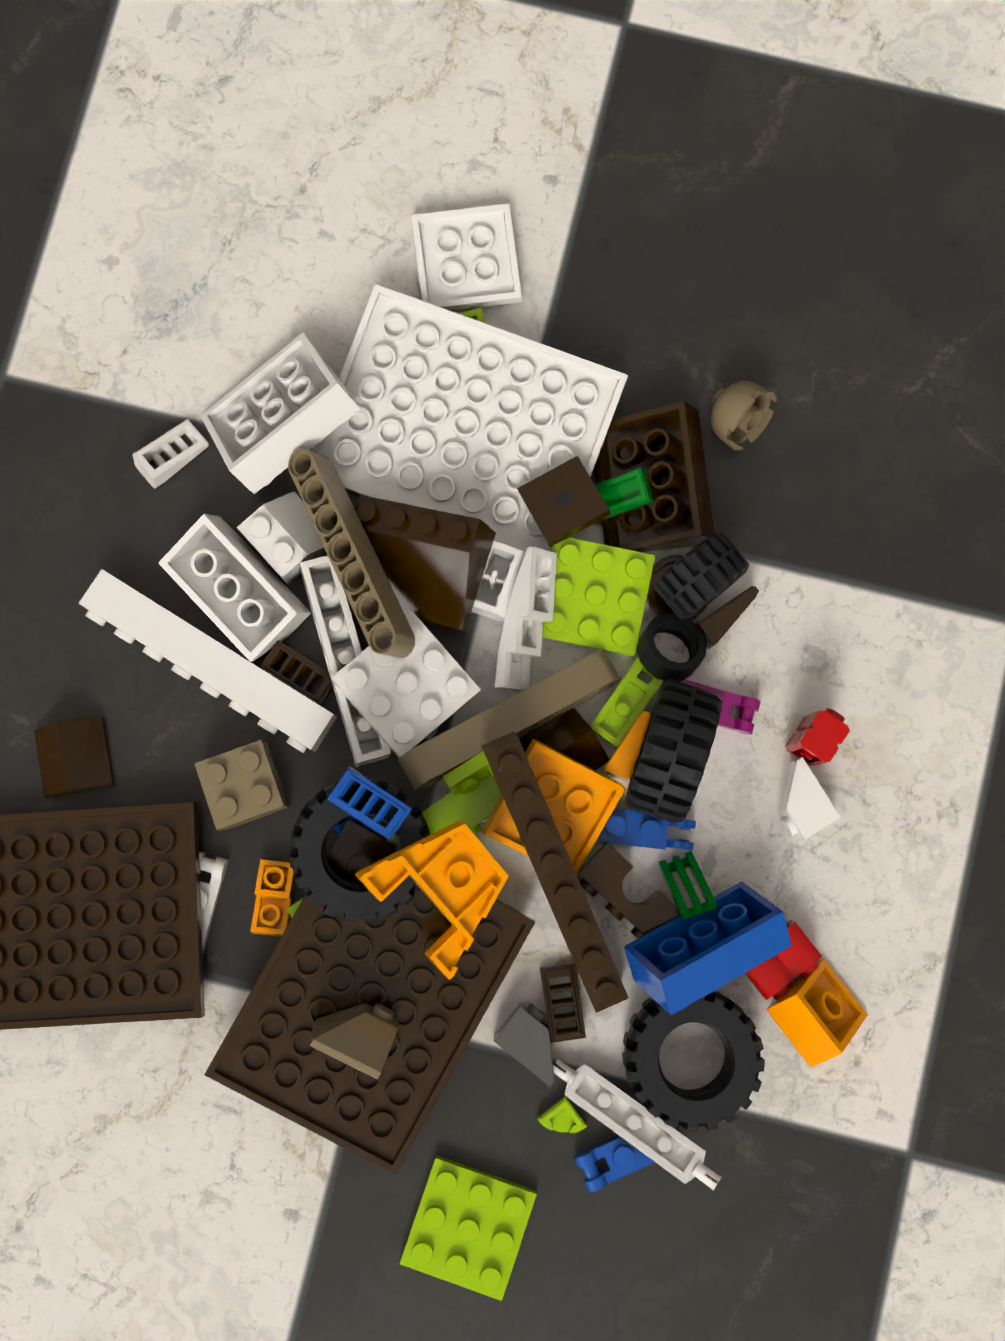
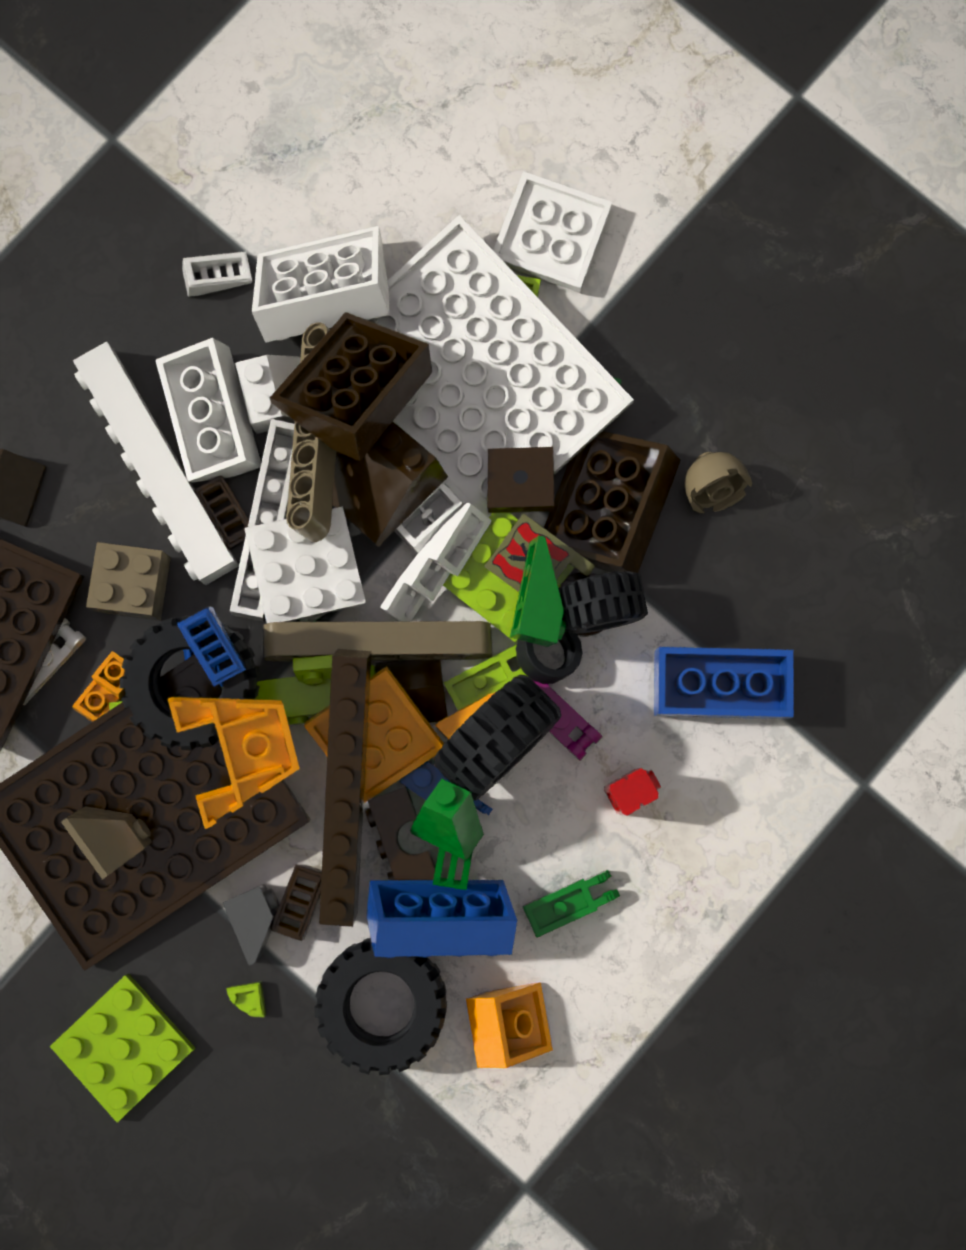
camera: 30 degrees right, 0 degrees up
(365, 489) = (354, 384): none -> dark brown slope
(615, 571) = (511, 555): none -> flag
(621, 1161) = (286, 1057): blue plate -> none
(626, 491) = (577, 498): green tile -> none
(635, 1124) = (302, 1035): white plate -> none
(643, 605) = (539, 602): none -> green slope
(666, 852) = (449, 820): none -> green slope
(720, 621) = (605, 649): dark brown slope -> none
(776, 973) = (489, 972): red brick -> none
(805, 803) = (593, 842): white slope -> none
(811, 873) = (567, 904): none -> green hinge
(846, 594) = (723, 683): none -> blue brick

